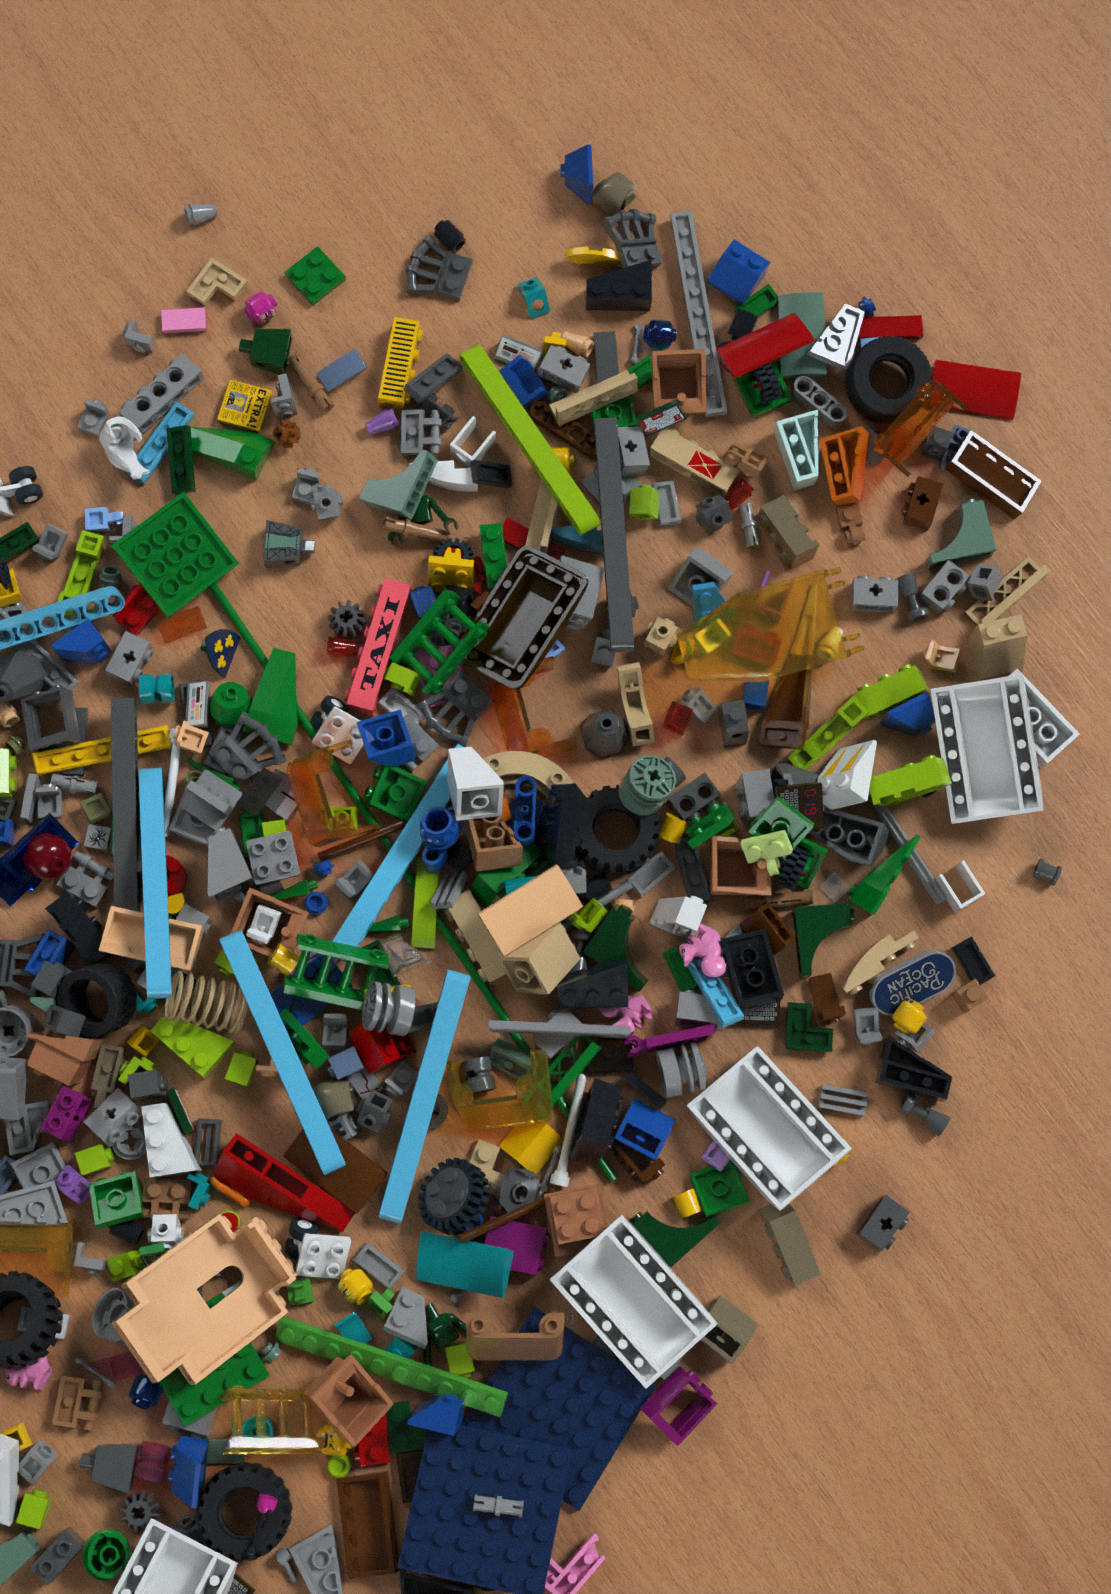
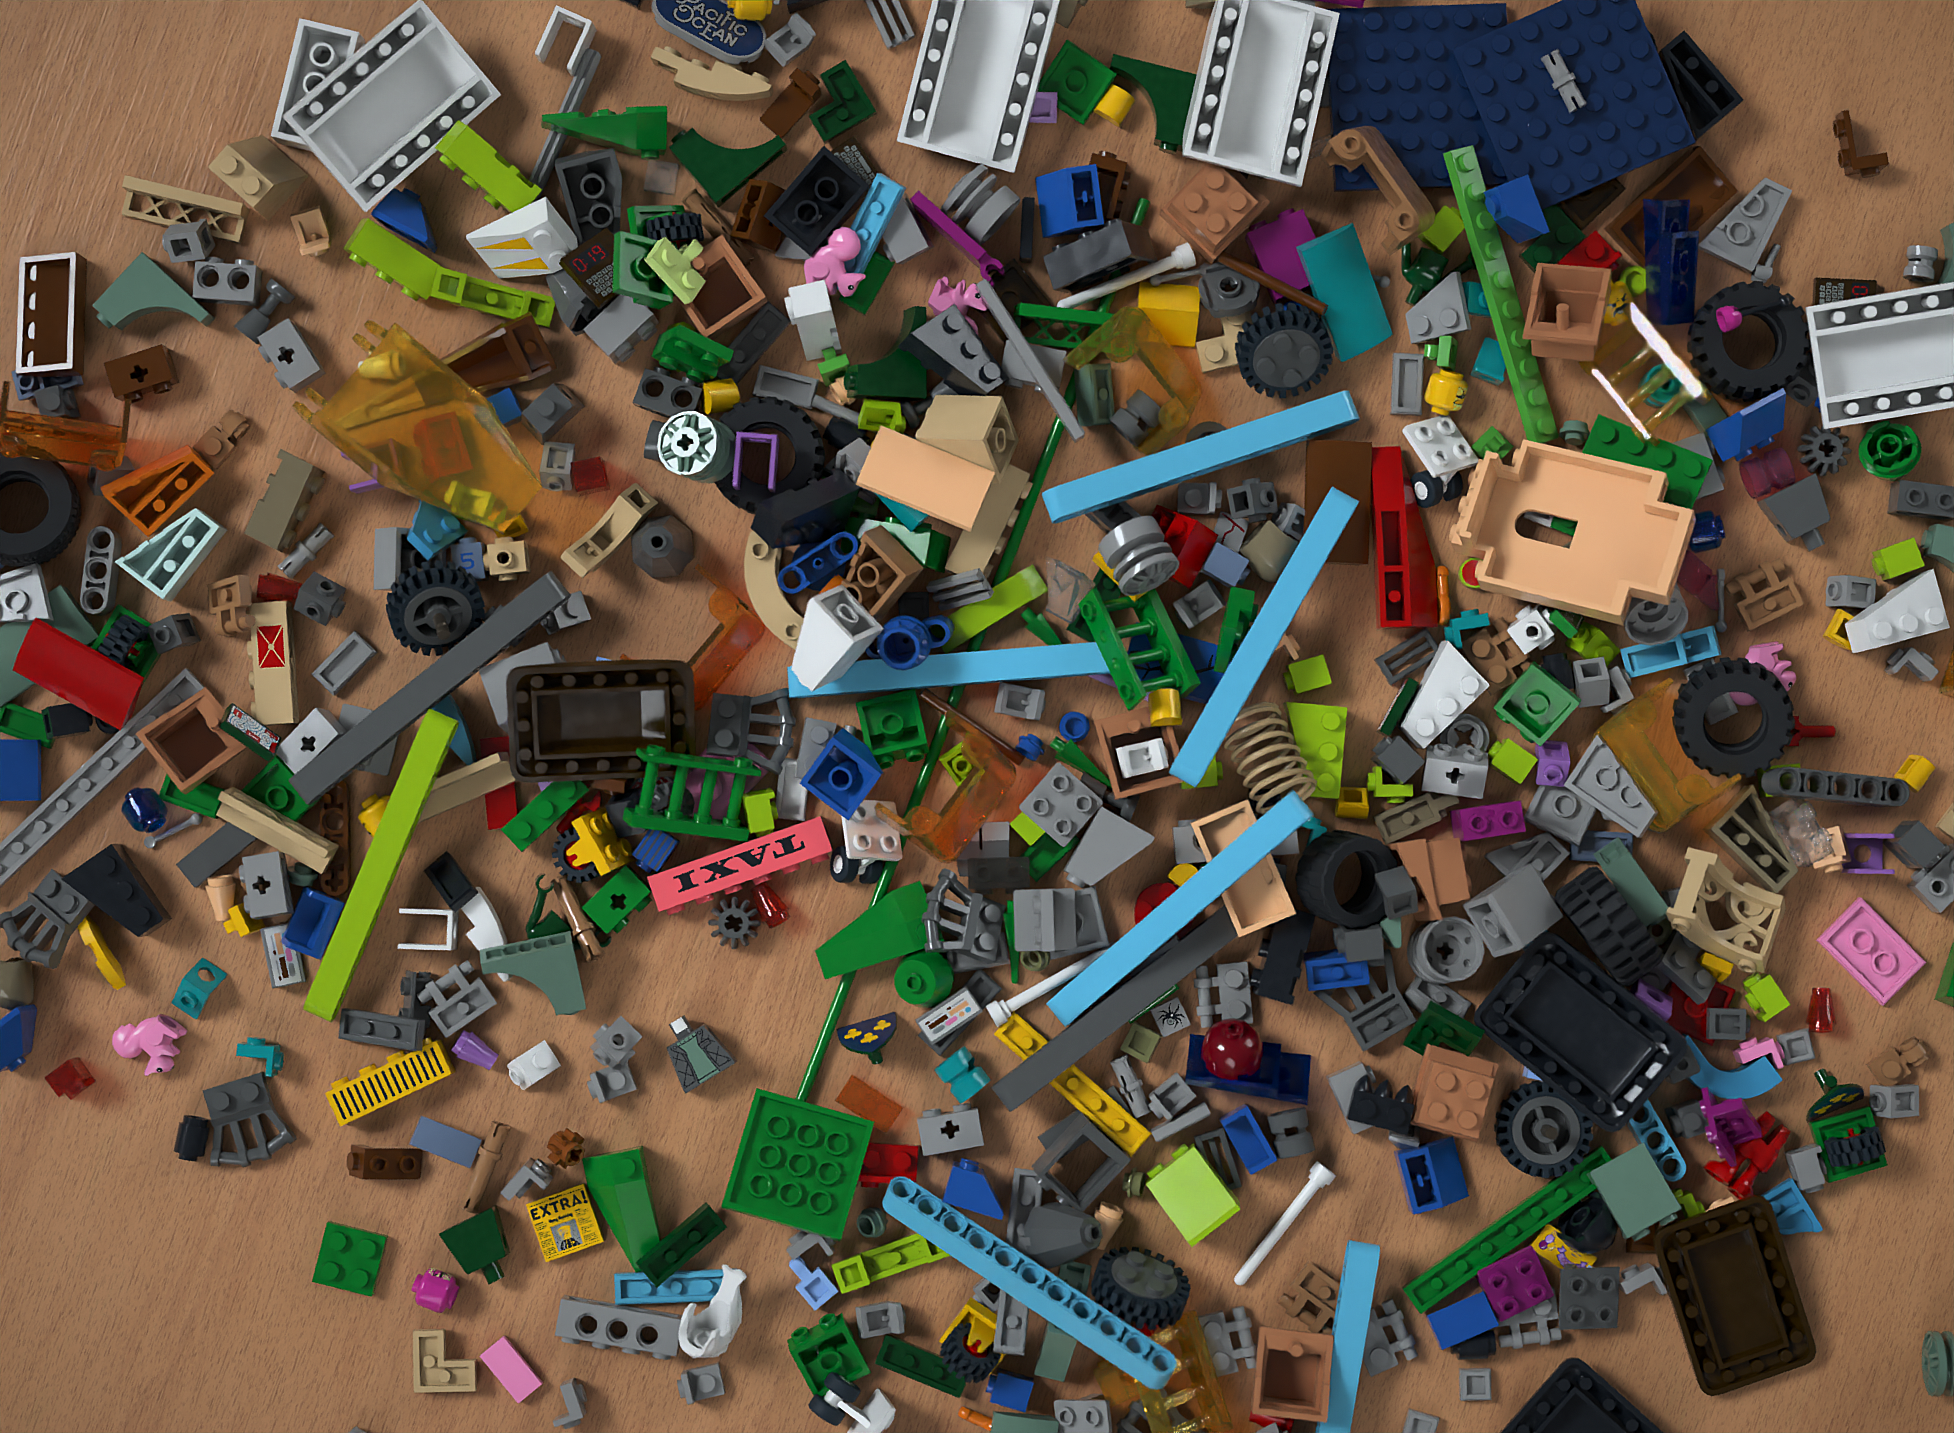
camera: 115 degrees left, 10 degrees up
(57, 499) = (826, 1350): none -> green plate
(80, 1325) = (1678, 651): none -> medium azure slope
(104, 1245) = (1591, 682): none -> light grey brick
(190, 738) = (992, 993): light nougat bracket -> none
(333, 1496) = (1670, 261): none -> clear blue slope
(349, 449) = (532, 1065): none -> white bracket
(354, 328) = (384, 1163): none -> reddish brown bracket
(408, 549) = (601, 906): none -> green brick
(473, 304) = (257, 1048): none -> teal bracket
(523, 253) = (152, 1036): none -> bright pink animal
(532, 193) = (70, 1078): none -> clear red brick
(624, 806) = (760, 438): none -> medium lavender piece
(643, 911) = (833, 366): none -> bright green tile
(644, 503) = (363, 685): lime brick -> none
(660, 571) = (434, 607): none -> wheel
(677, 612) = (470, 556): none -> sand blue brick
(752, 418) = (173, 632): none -> dark grey bracket

